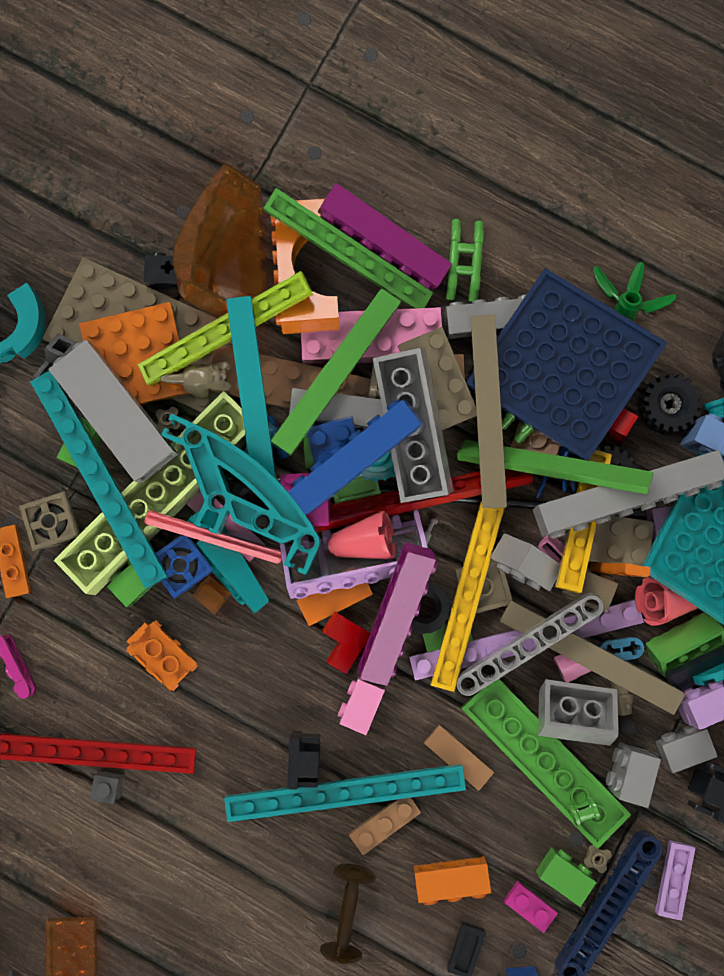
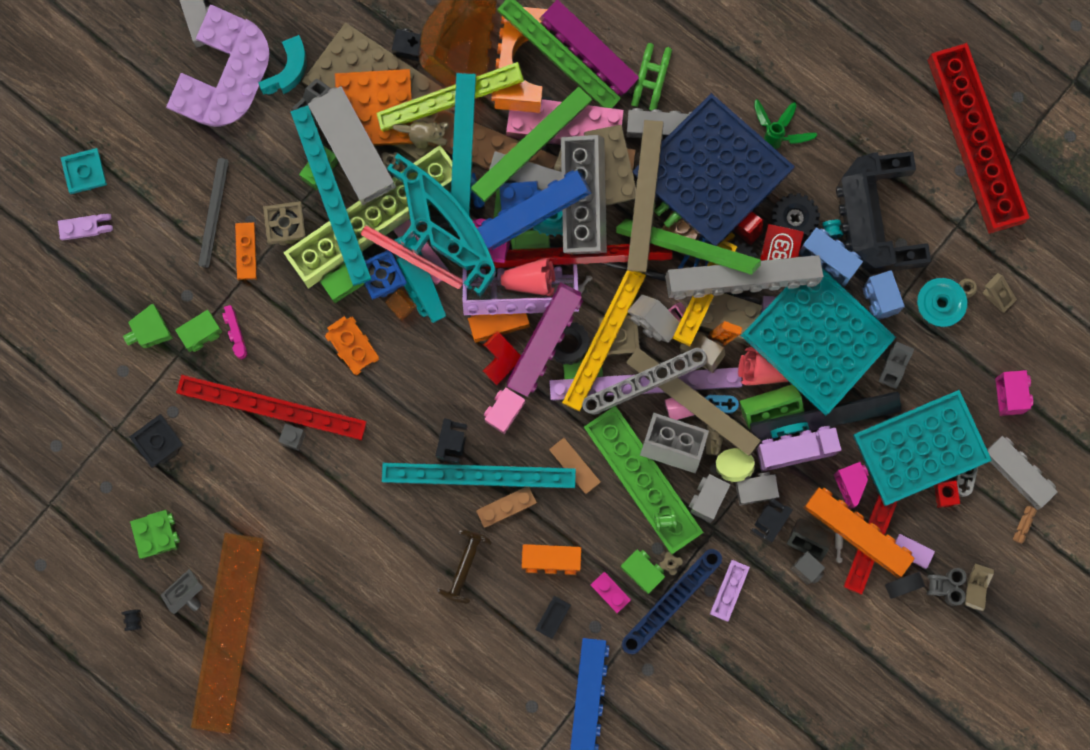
camera: 10 degrees right, 5 degrees down
(654, 725) = (734, 465): none -> yellowish green tile
(661, 443) = (781, 243): none -> red sticker

